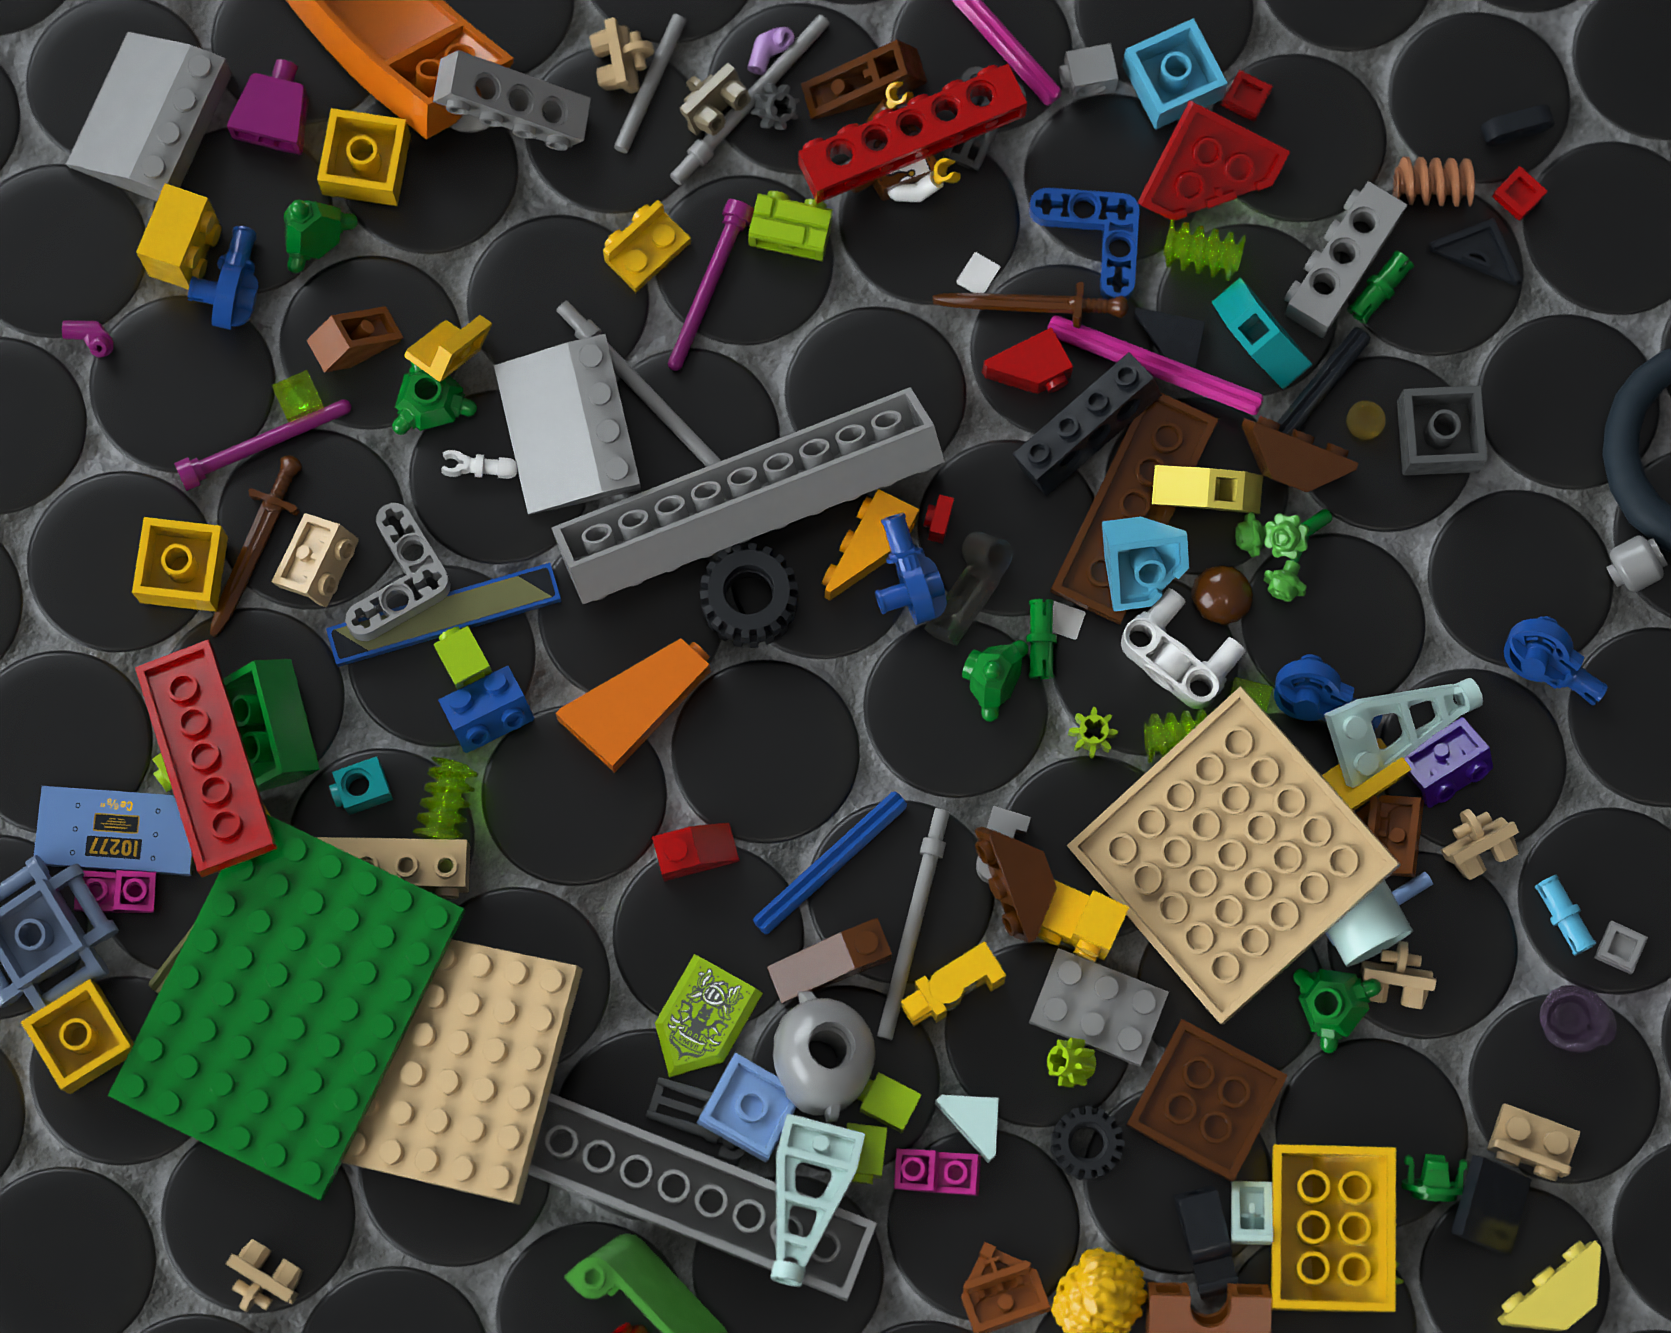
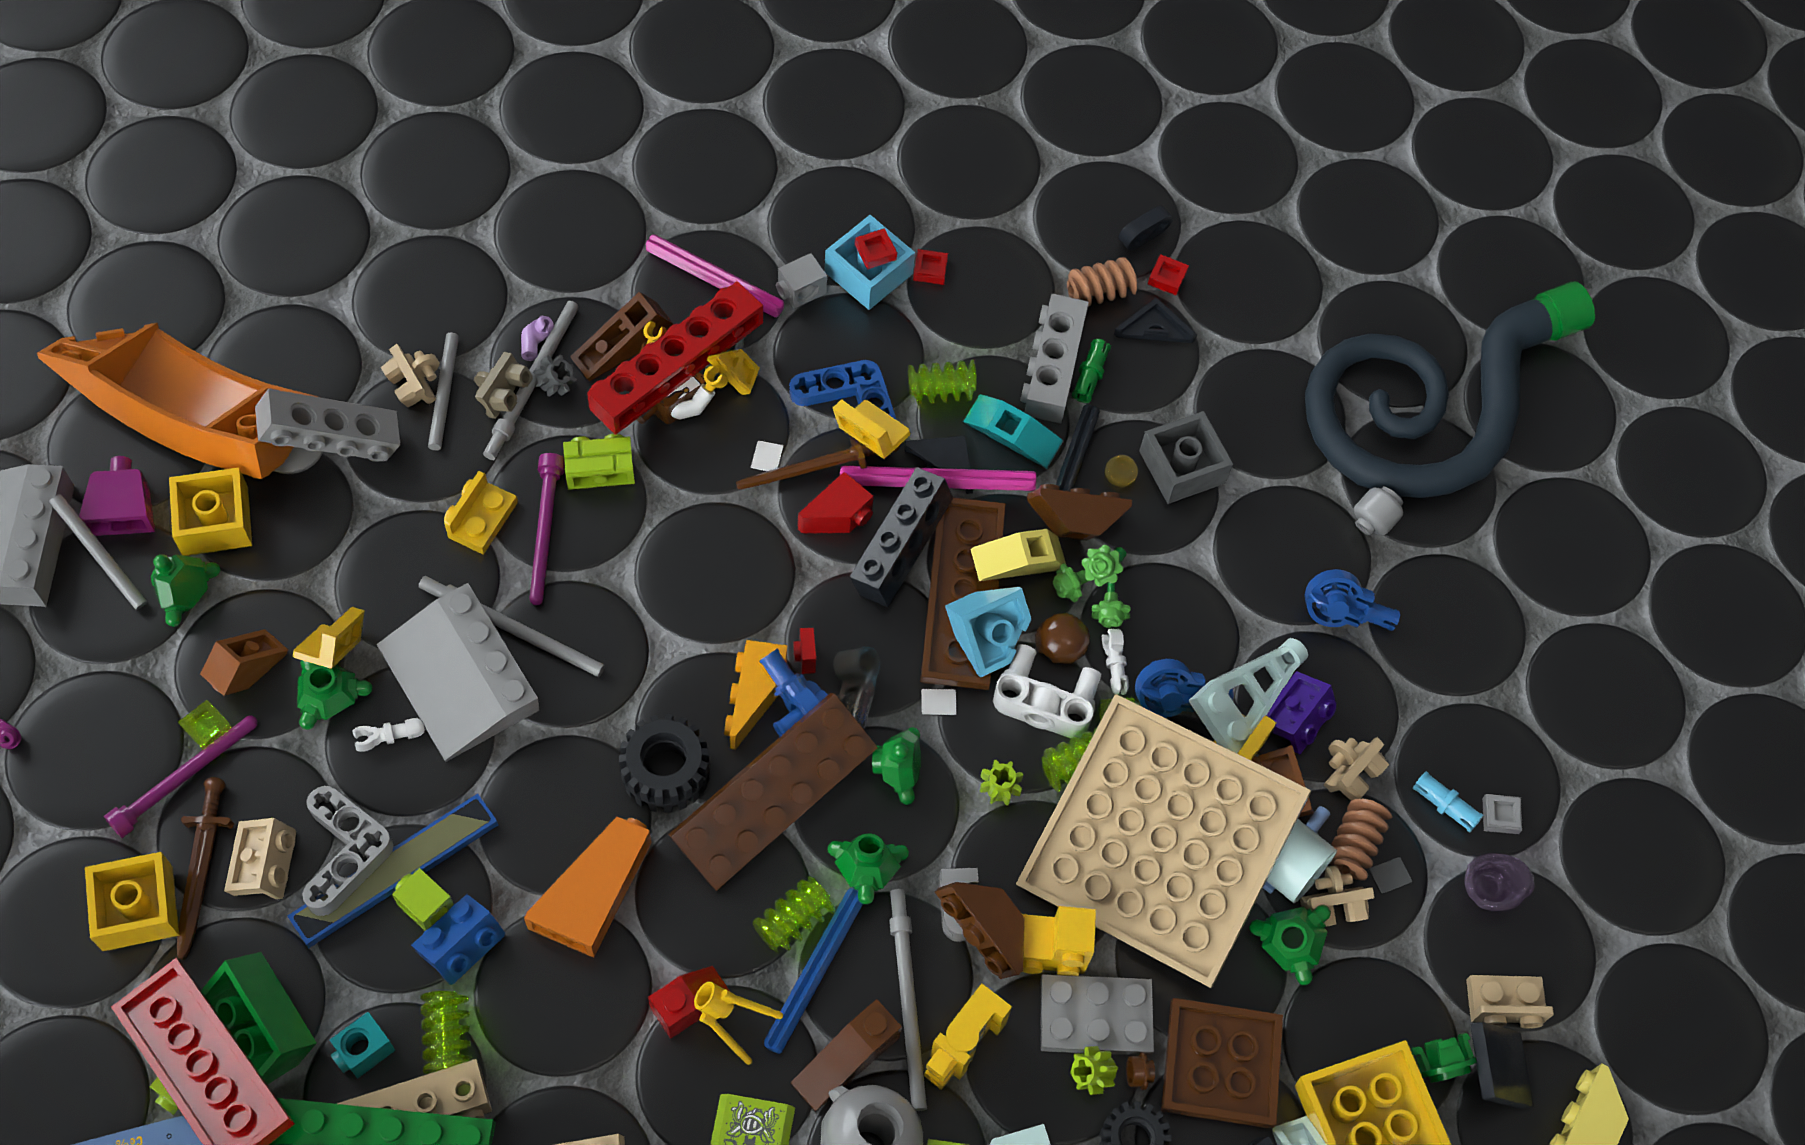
camera: 25 degrees left, 15 degrees down
(179, 236) = (57, 622): yellow brick -> none
(236, 288) = (121, 652): blue pin -> none
(238, 167) = (98, 551): none -> light grey bar
(719, 867) = (718, 1003): none -> yellow plant
(748, 495) = (632, 682): light grey brick -> none
(828, 800) = (793, 914): none -> clear neon green piece
(850, 664) = (773, 791): none -> reddish brown plate
(921, 773) = (867, 863): none -> green rock
(977, 161) = (738, 368): none -> yellow tile
(1041, 639) = (928, 721): green pin -> none
(1102, 282) = (871, 426): none -> yellow panel
(1119, 1079) = (1140, 1071): none -> reddish brown plate
(1181, 68) = (876, 248): none -> red plate
(1209, 164) = (922, 318): red plate -> none
(1274, 620) = (1116, 662): none -> white piece
(1447, 920) = (1359, 836): none -> nougat piece
(1470, 970) = (1390, 875): none -> dark grey sticker

